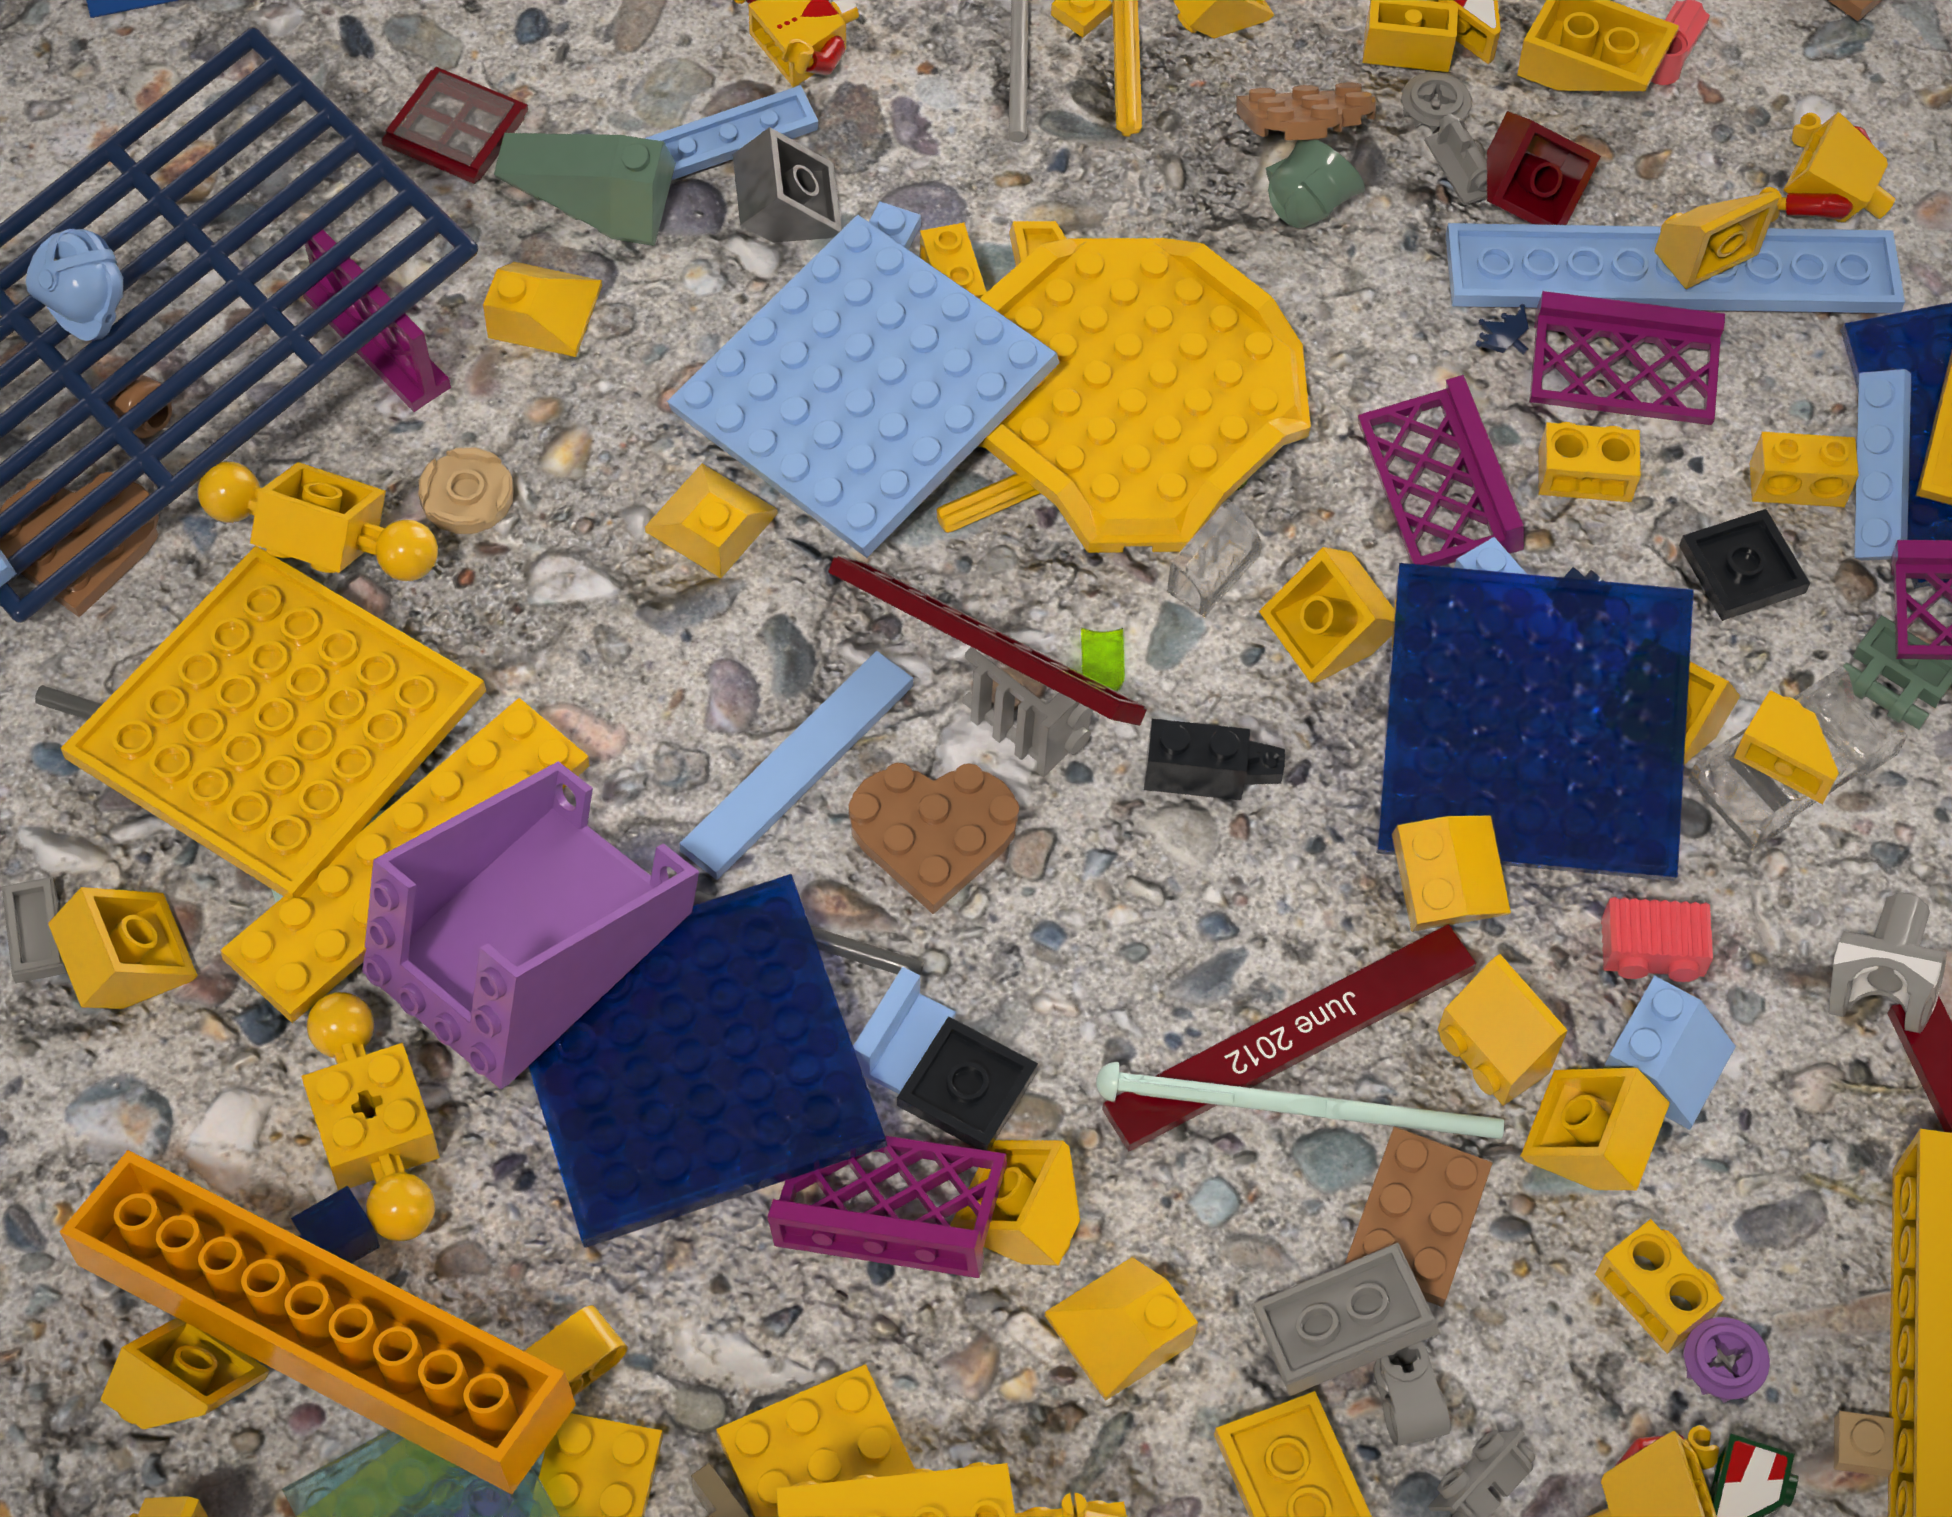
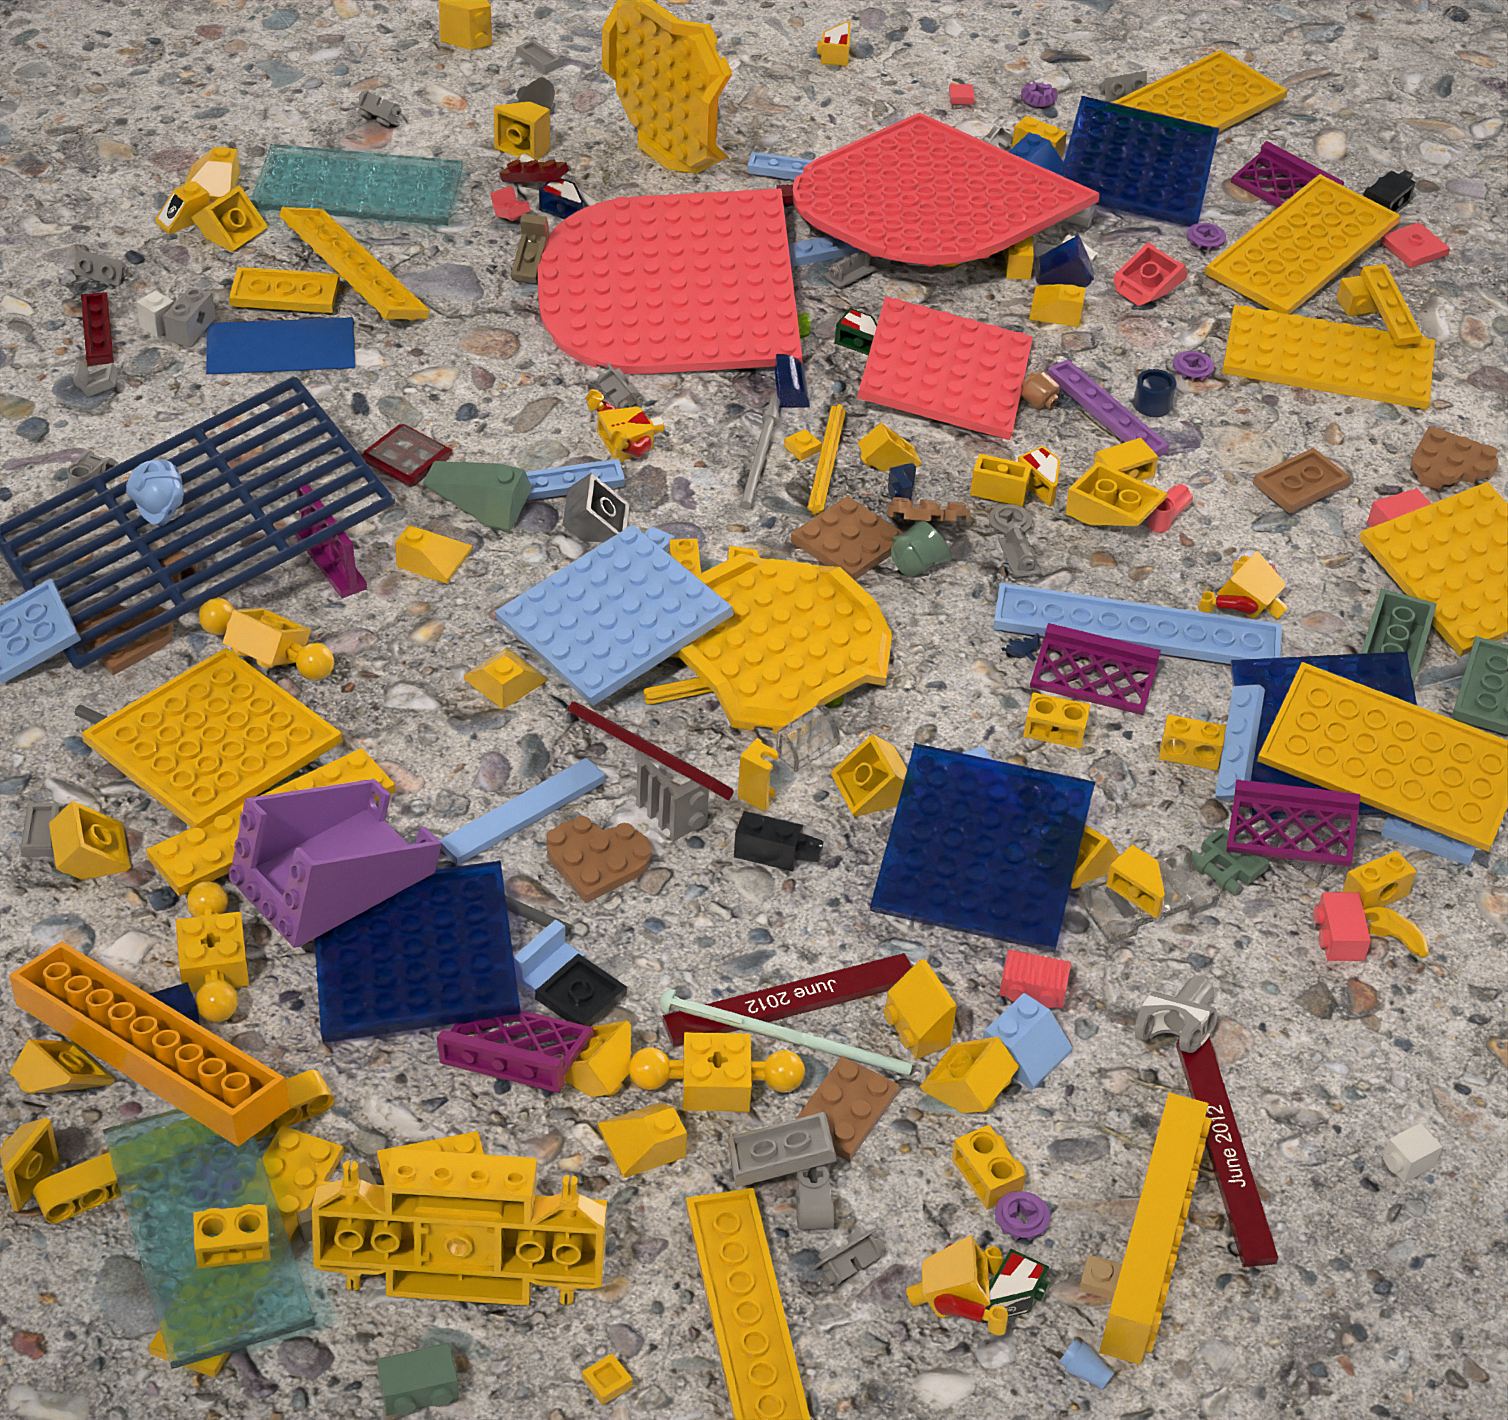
camera: 10 degrees right, 15 degrees down
(466, 491) = (361, 642): tan tile -> none
(1103, 657) = (730, 778): clear neon green piece -> none
(1153, 649) = (755, 775): none -> yellow hinge
(1181, 1188) = (716, 1071): none -> yellow brick
(1192, 174) = (847, 537): none -> medium nougat plate
(1252, 59) = (901, 480): none -> dark blue bracket
(1450, 871) = (911, 920): yellow slope -> none
(1481, 474) = (984, 706): magenta fence -> none
(1536, 171) = (1060, 560): dark red slope -> none
(1714, 237) = (1164, 607): yellow slope -> none
(1744, 564) = (1142, 789): black plate -> none

